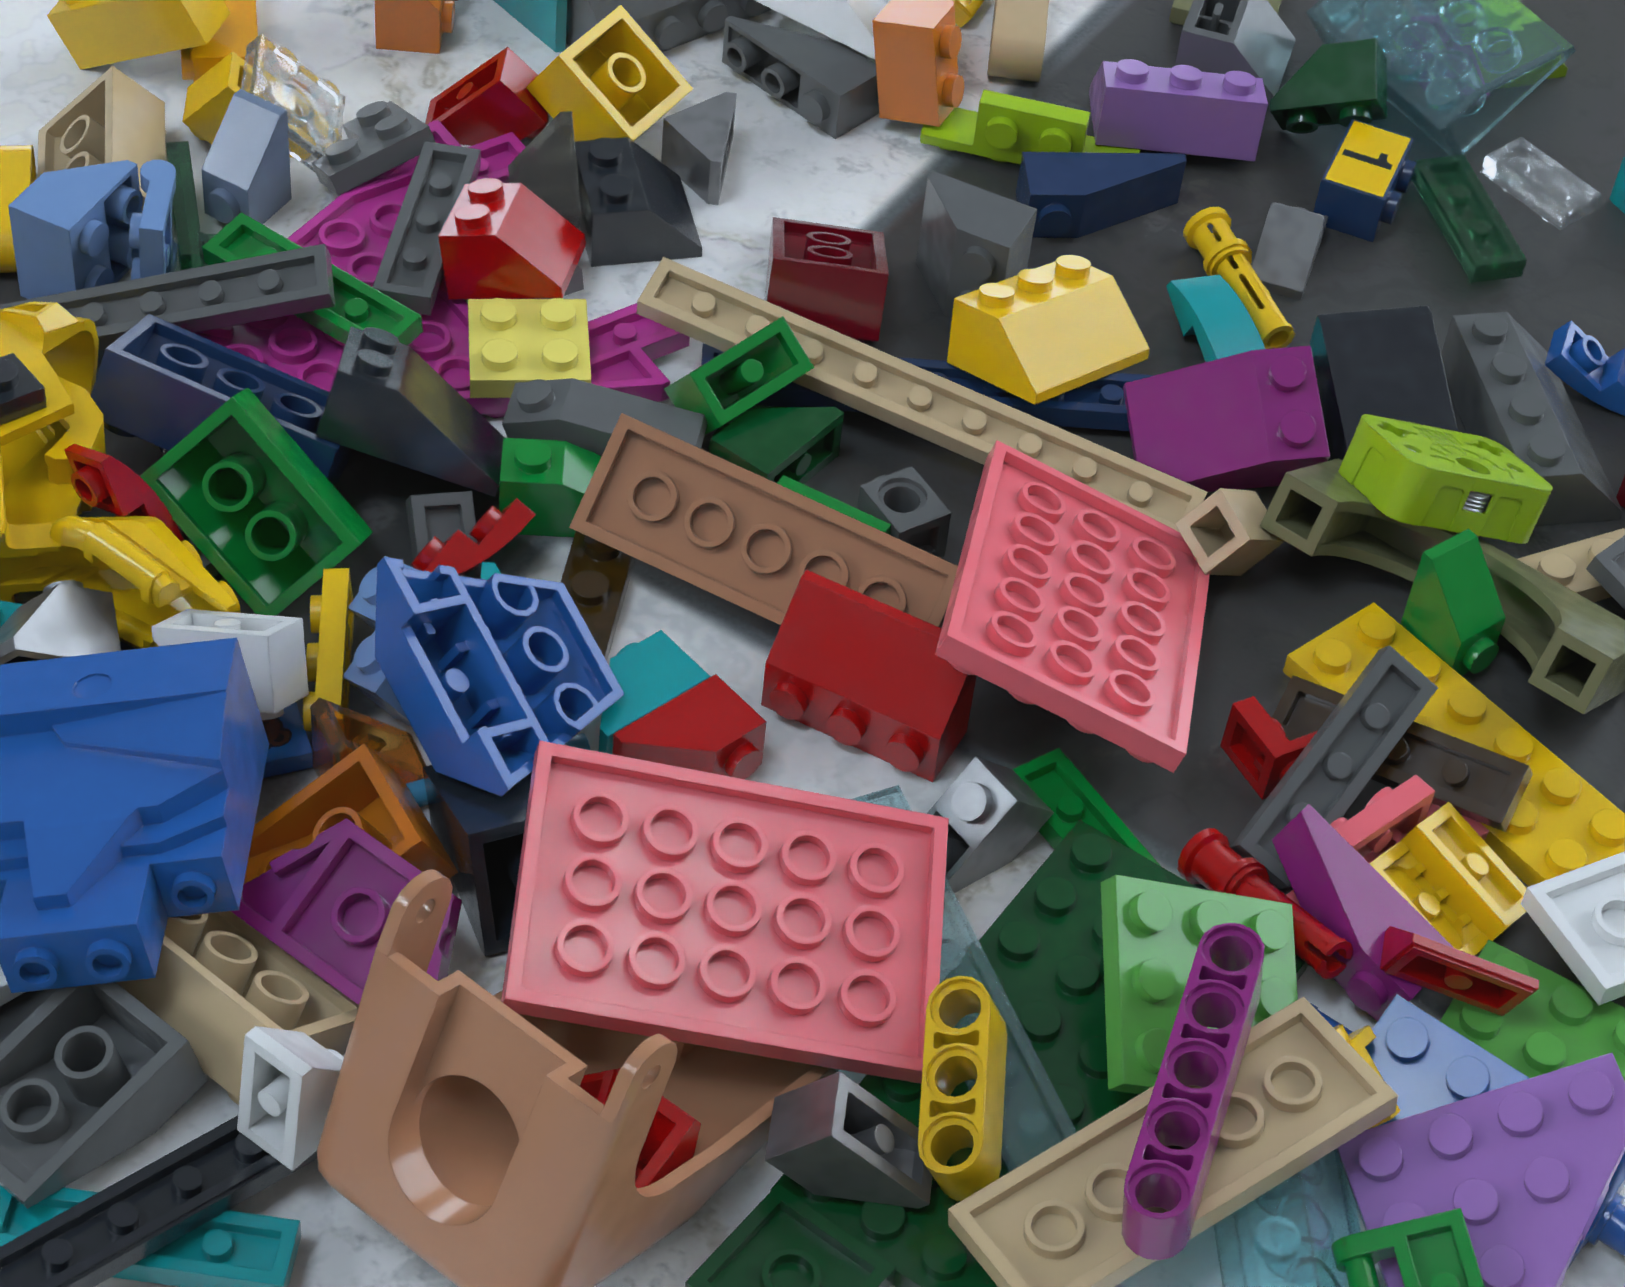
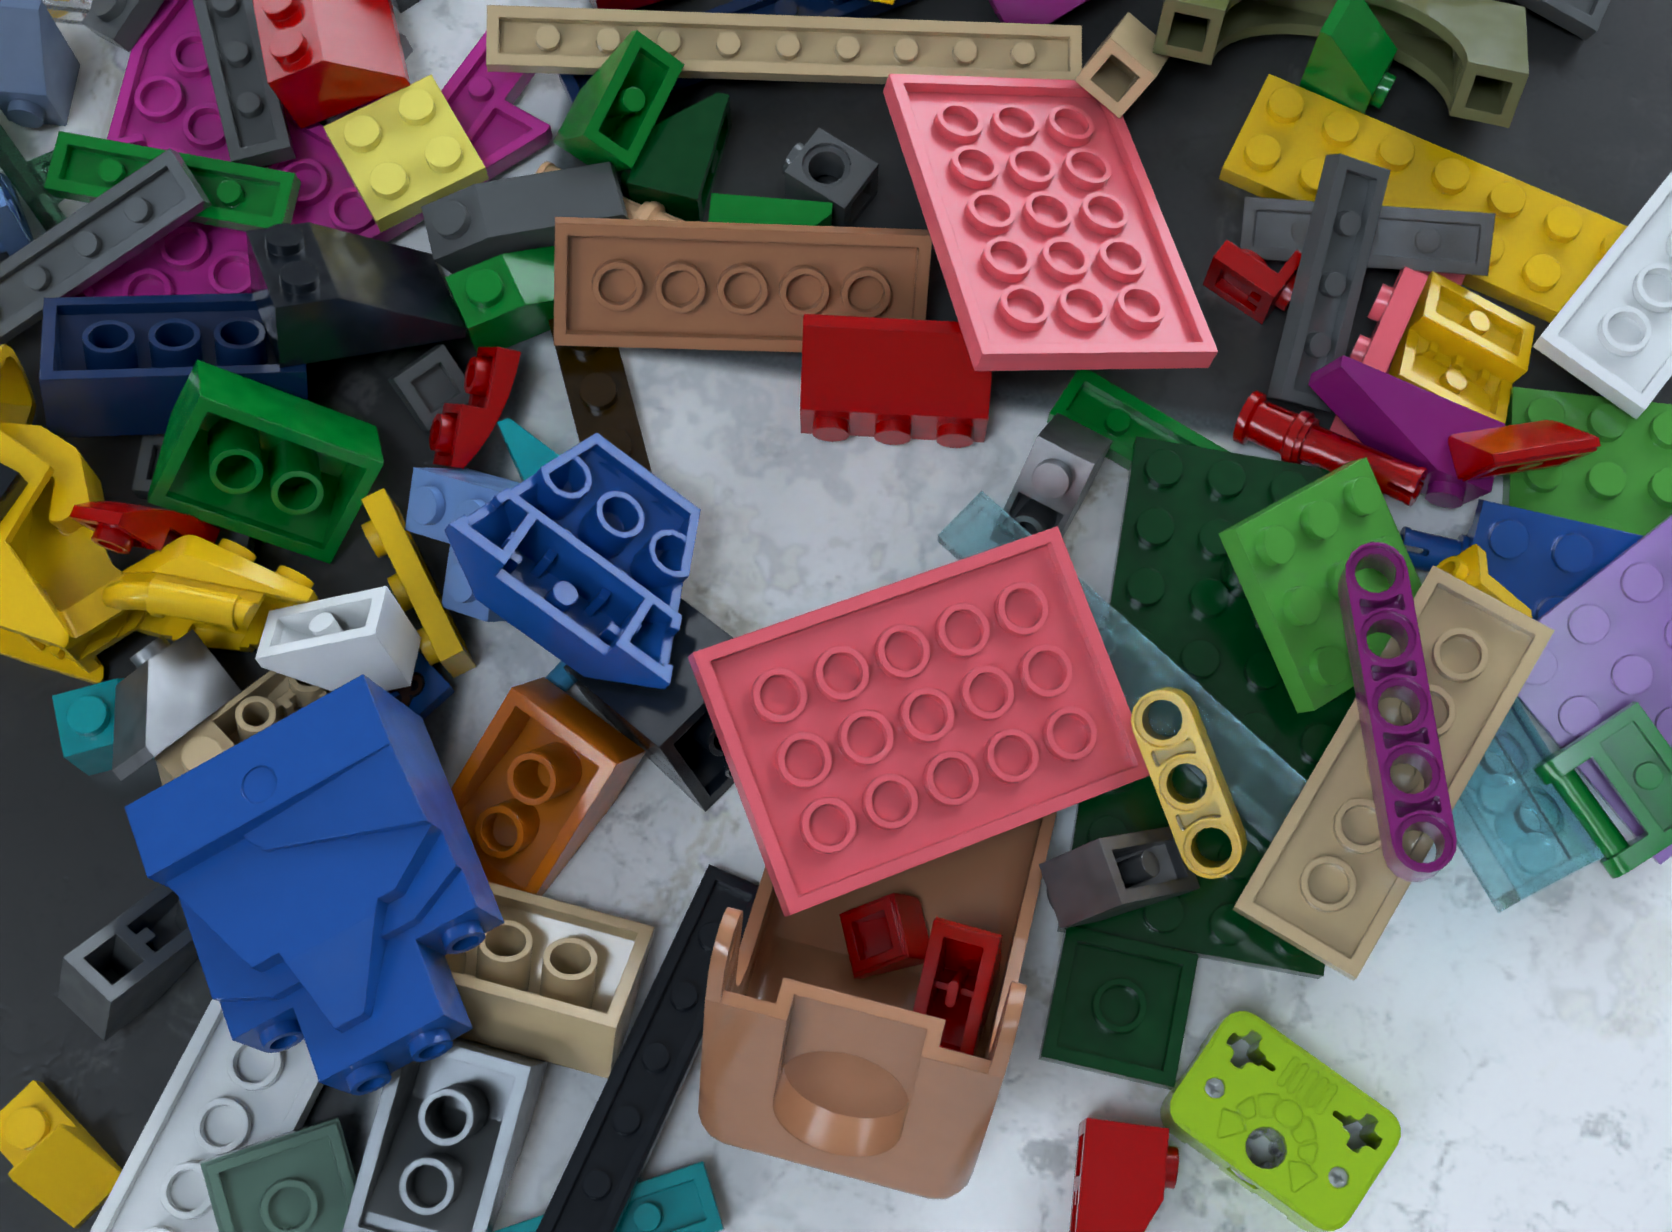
camera: 20 degrees left, 25 degrees up
(286, 1092) = (650, 1068): white slope -> none
(332, 905) = (606, 866): magenta wing -> none
(341, 731) = (493, 665): clear orange slope -> none
(649, 677) = (715, 476): teal slope -> none
(699, 731) = (774, 512): red slope -> none

